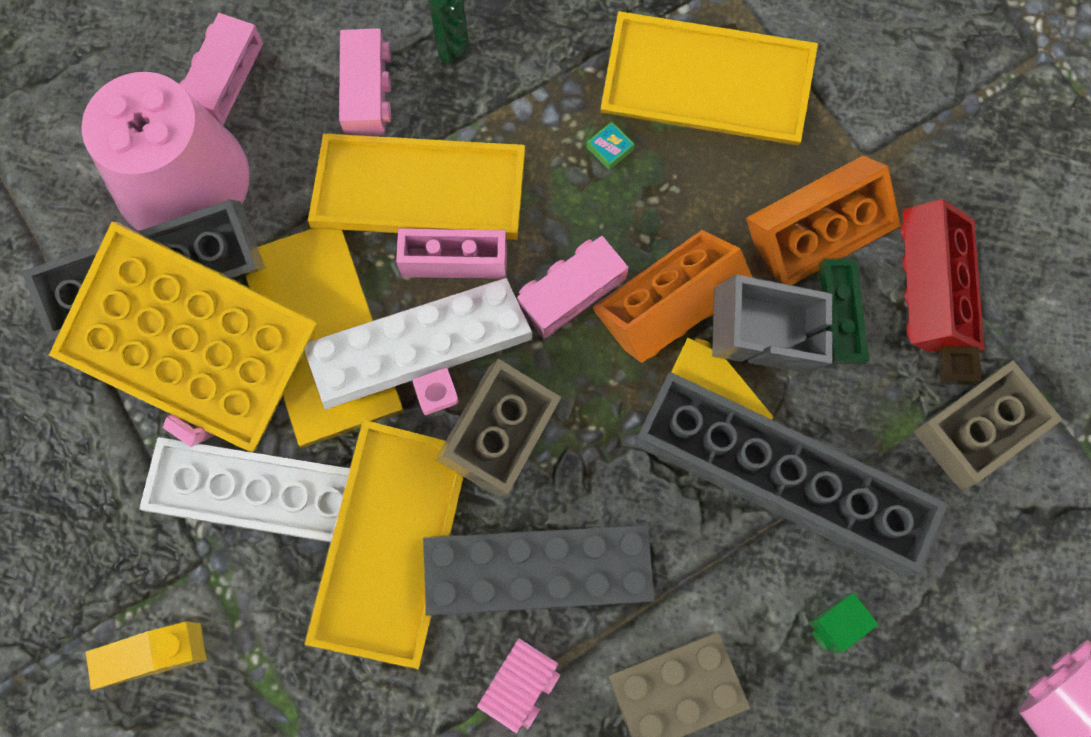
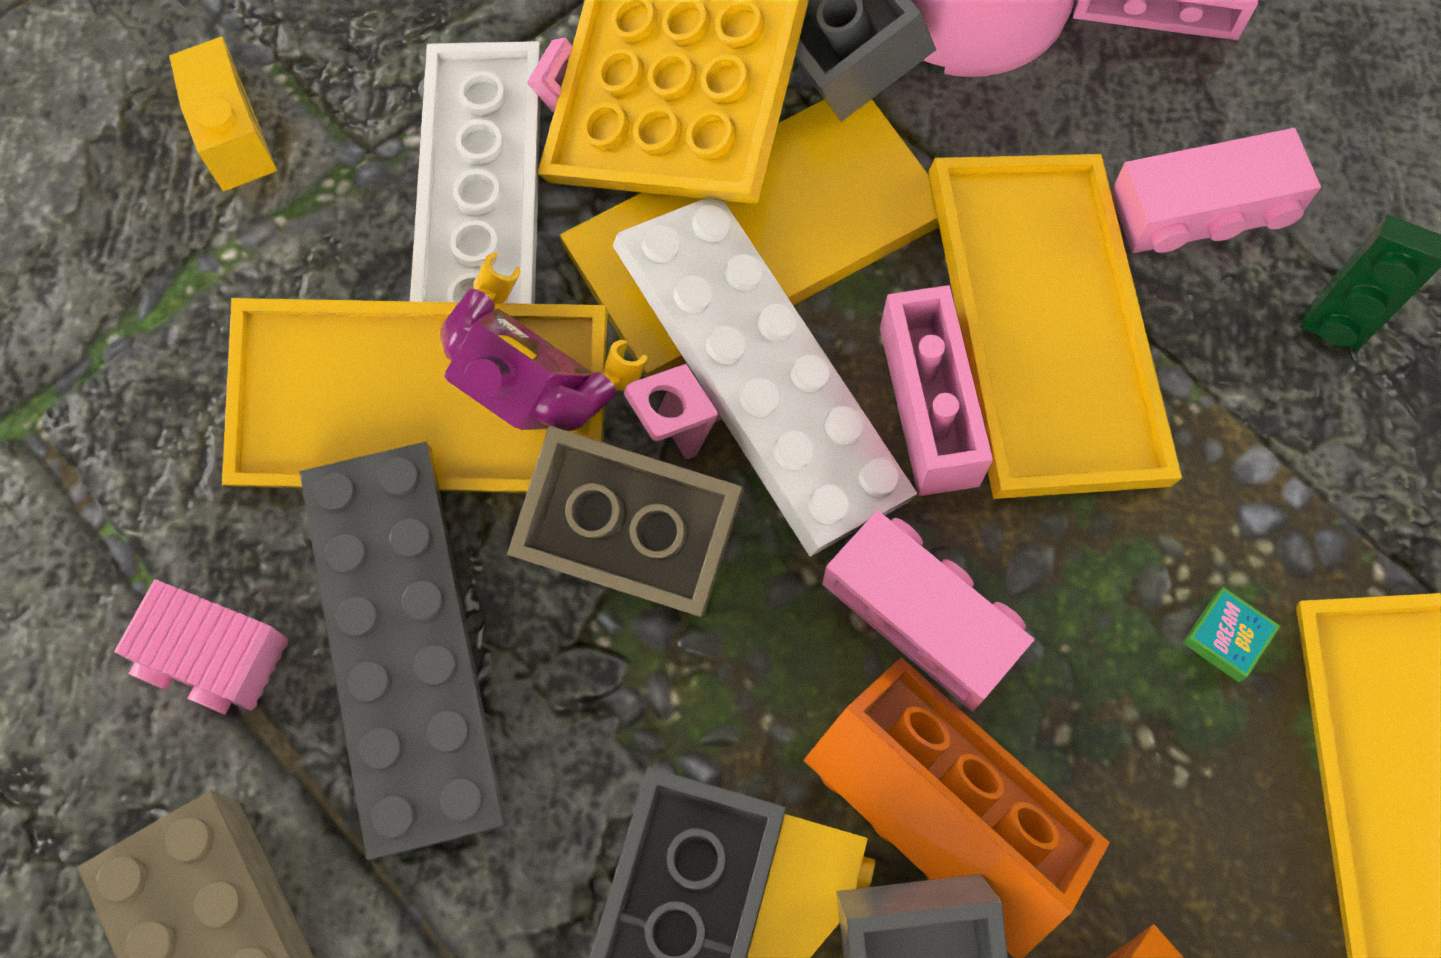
camera: 80 degrees right, 5 degrees down
(396, 474) = (519, 371): none -> magenta torso

